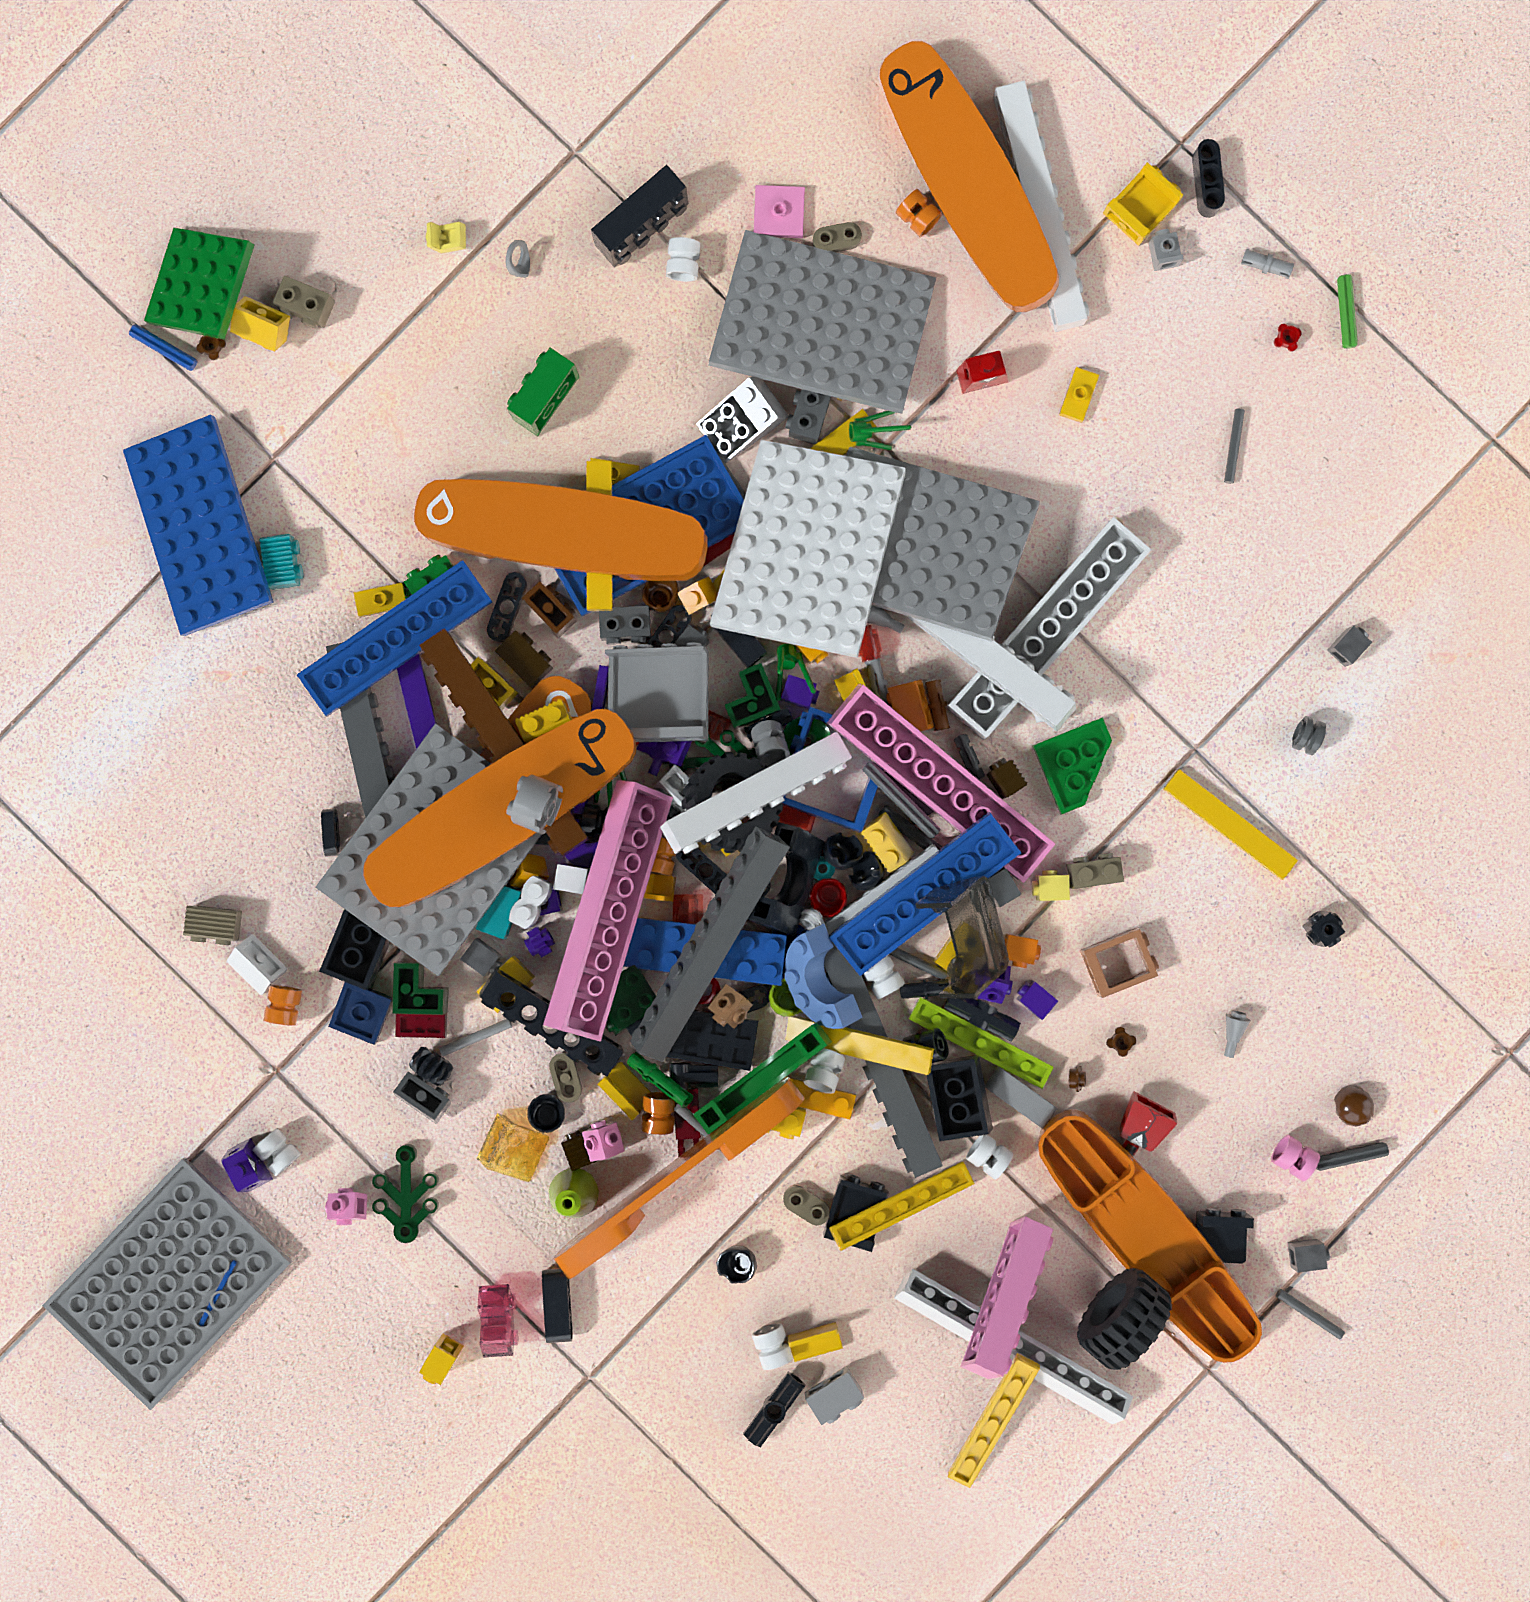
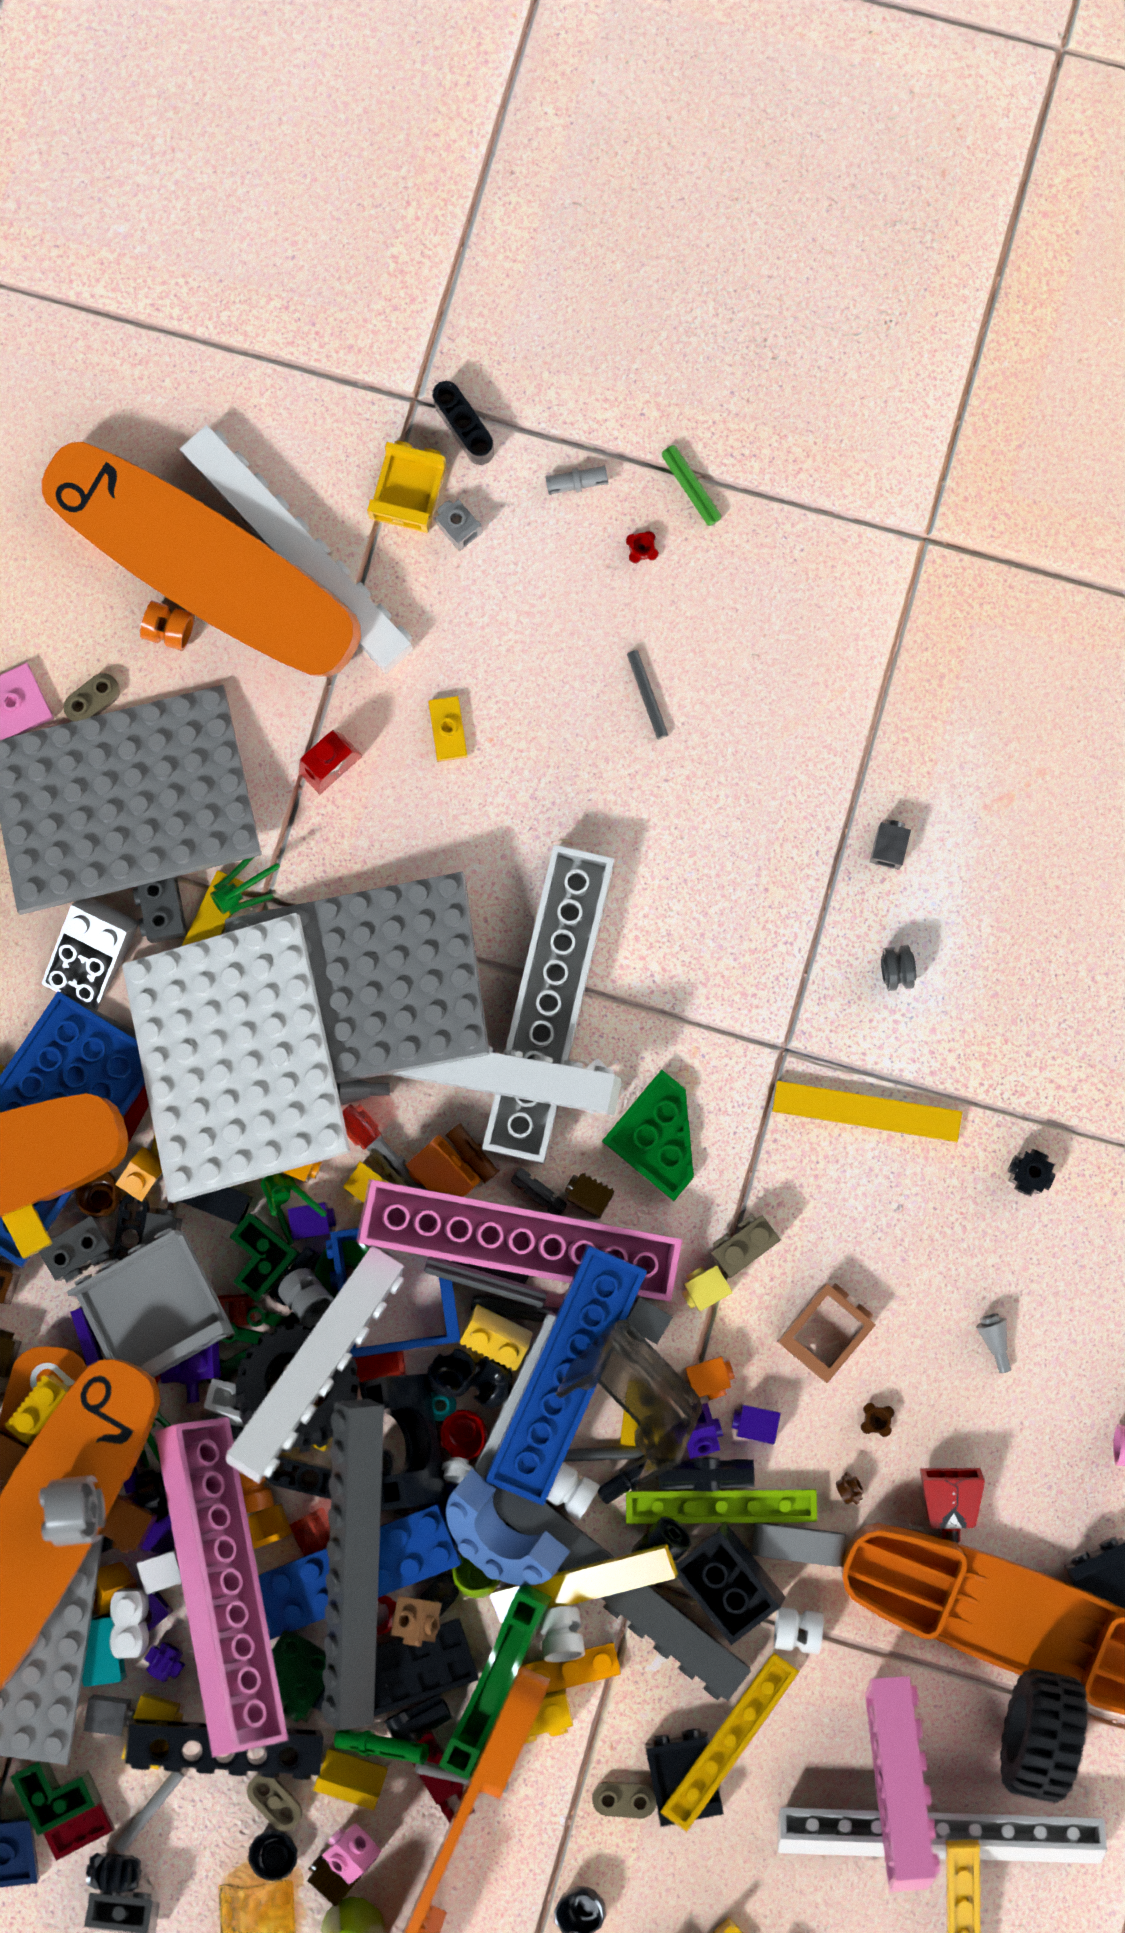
camera: 25 degrees left, 5 degrees down
(658, 1113) = (401, 1788): orange wheel -> none

